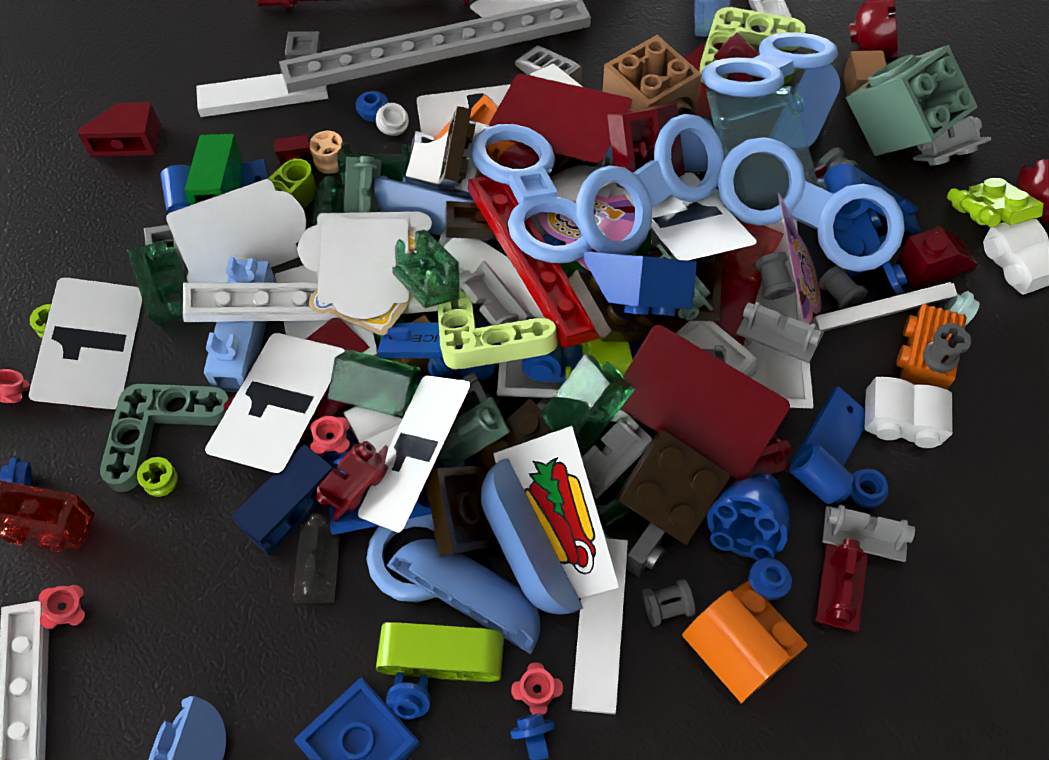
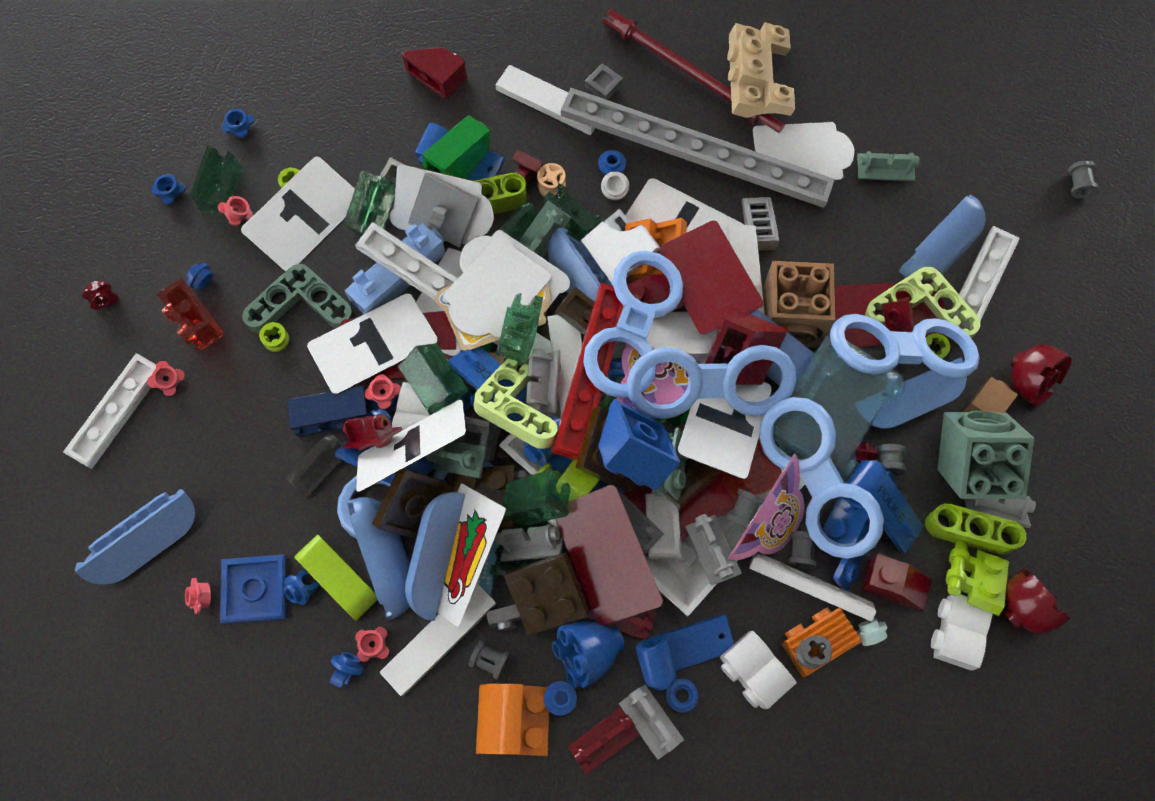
camera: 40 degrees right, 10 degrees up
(244, 231) = (443, 209): none -> light grey piece
(459, 136) = (606, 261): dark brown plate -> none
(953, 169) = (989, 526): none -> lime beam

